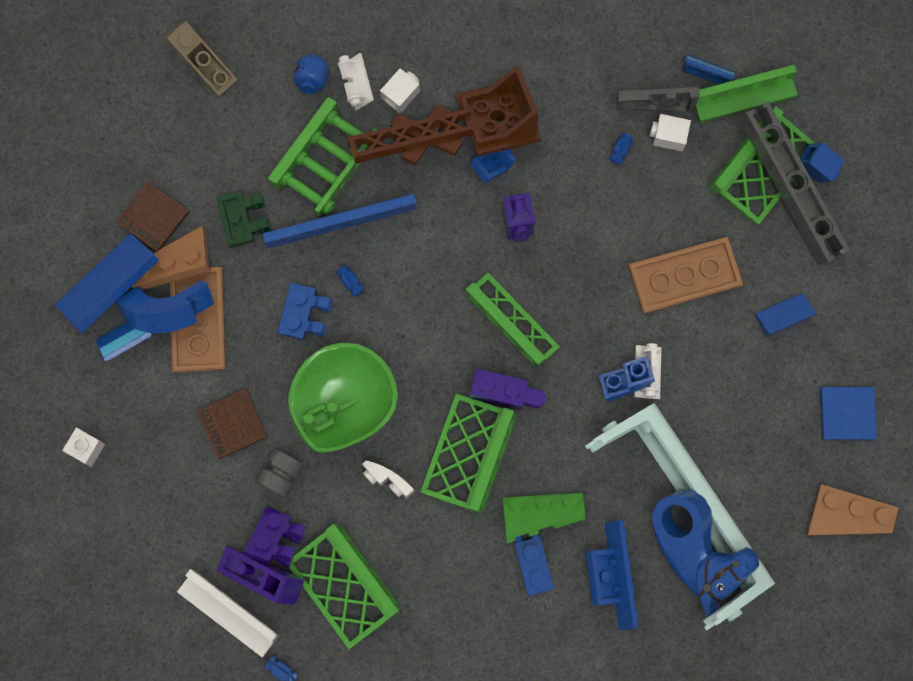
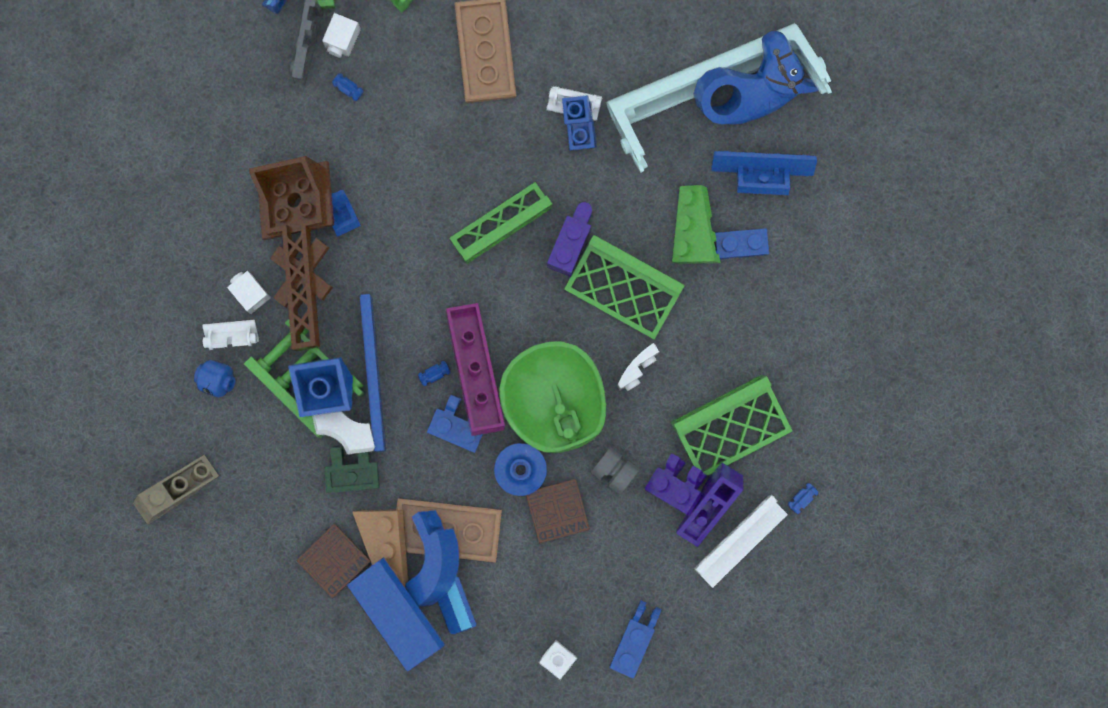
camera: 80 degrees left, 5 degrees up
(111, 522) = (634, 642): none -> blue hinge
(266, 366) = (506, 469): none -> blue dish
(274, 210) = (352, 435): none -> white tile
(314, 171) = (322, 387): none -> blue slope
(358, 316) = (474, 369): none -> magenta piece
(518, 217) = (402, 197): dark purple brick -> none

